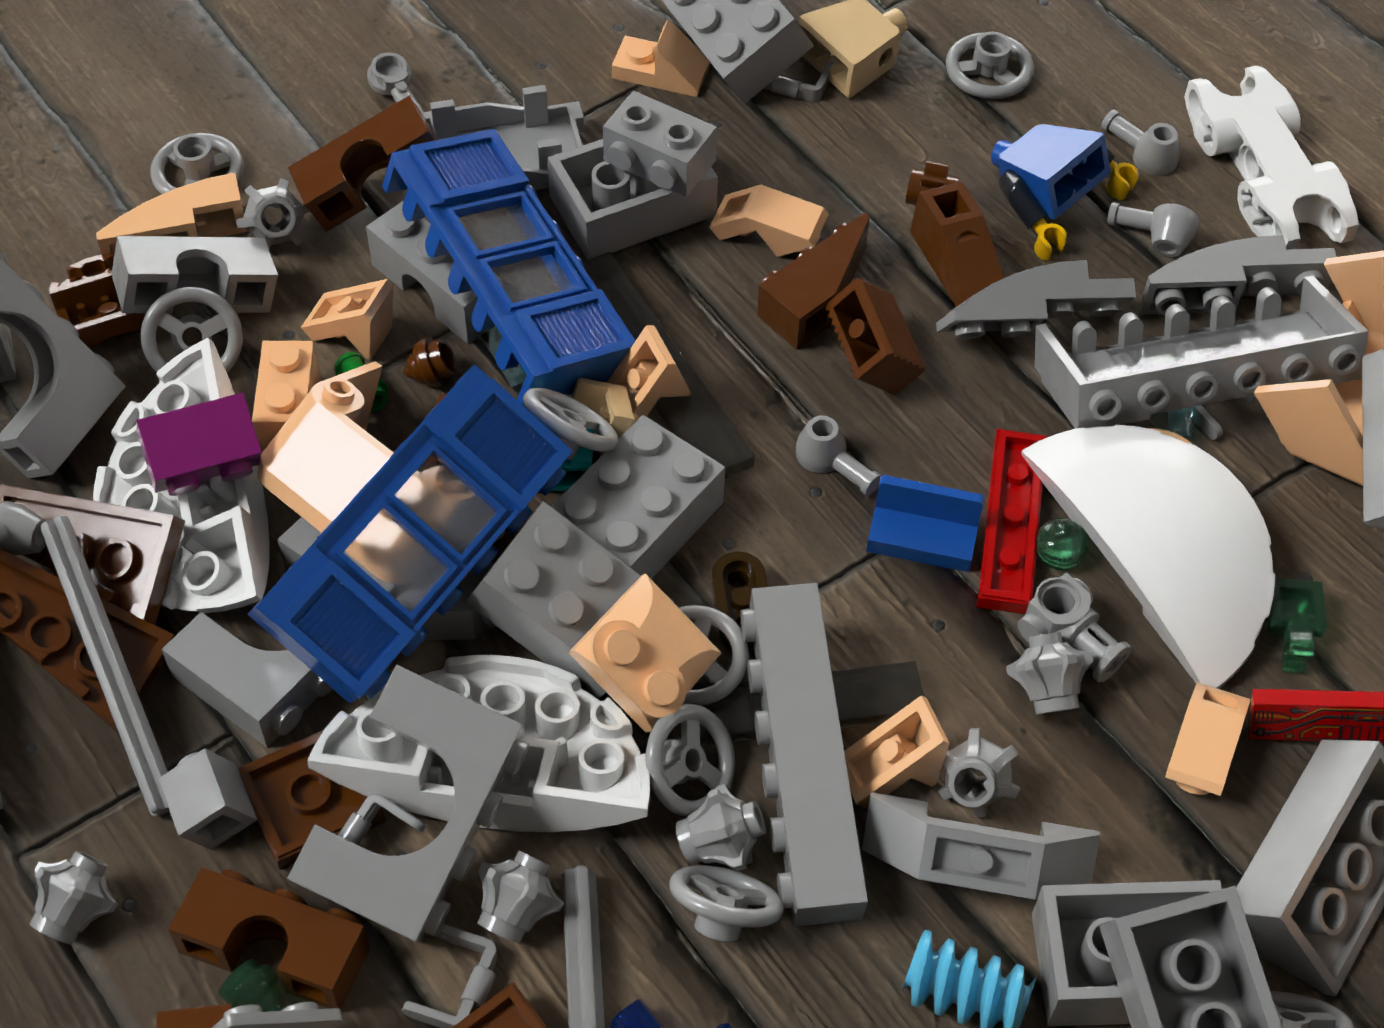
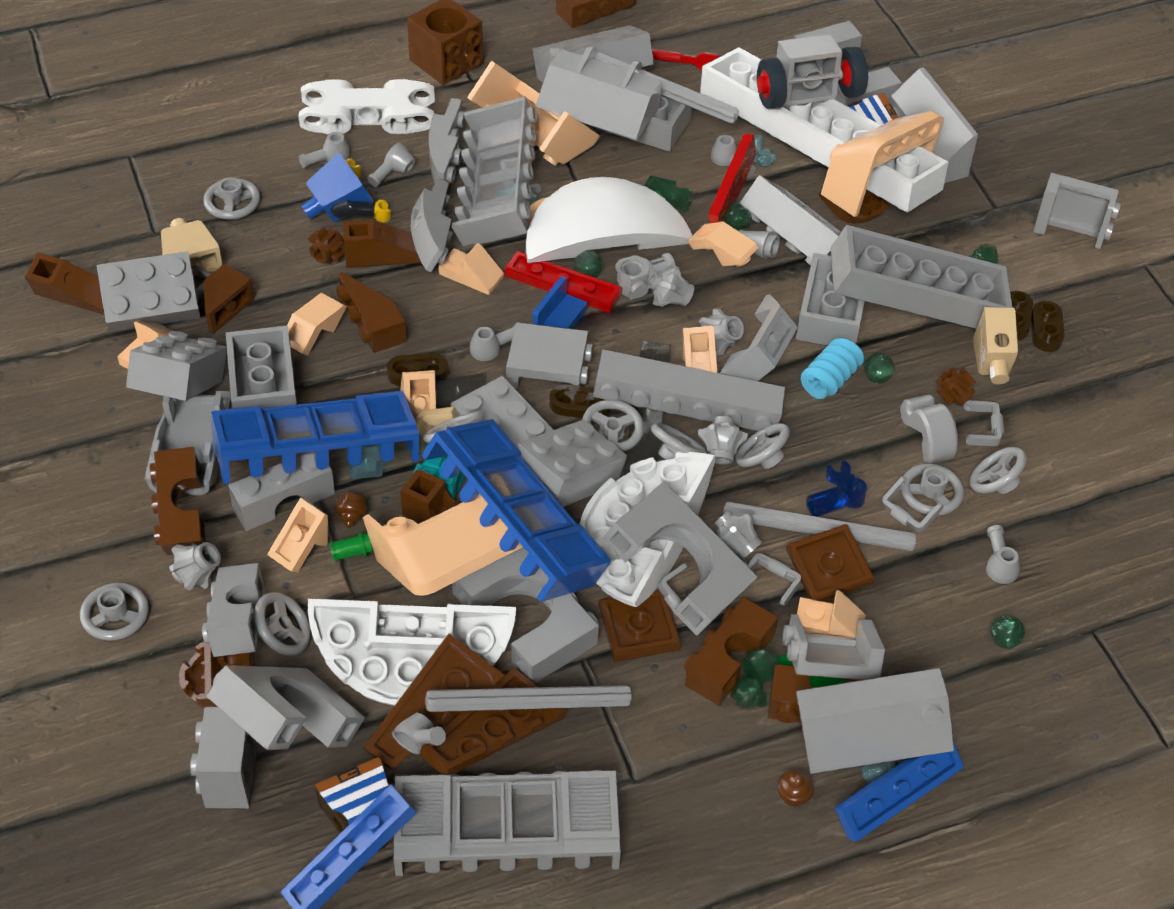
camera: 75 degrees left, 5 degrees down
(71, 896) = (681, 741): light grey rock -> none
(192, 210) = (170, 620): light nougat slope -> none
(193, 983) = (749, 693): none -> clear green plate
(199, 444) = (401, 609): magenta brick -> none
(207, 799) = (635, 664): light grey brick -> none
(283, 381) = (353, 579): light nougat brick -> none
(391, 76) = (88, 485): light grey plate -> none
(582, 72) = (176, 366): none -> light grey brick
(645, 653) = (622, 433): light nougat slope -> none
(659, 143) = (264, 335): light grey brick -> none
(732, 374) = (415, 363): none -> dark brown plate
(775, 107) = (225, 296): none -> reddish brown slope
(817, 529) = (548, 354): none -> light grey panel
(875, 337) = (427, 295): reddish brown brick -> none
(976, 389) = (472, 269): none -> light nougat slope
(1244, 803) = (766, 241): none -> light grey cone
(1291, 748) = (737, 216): none -> clear green plate

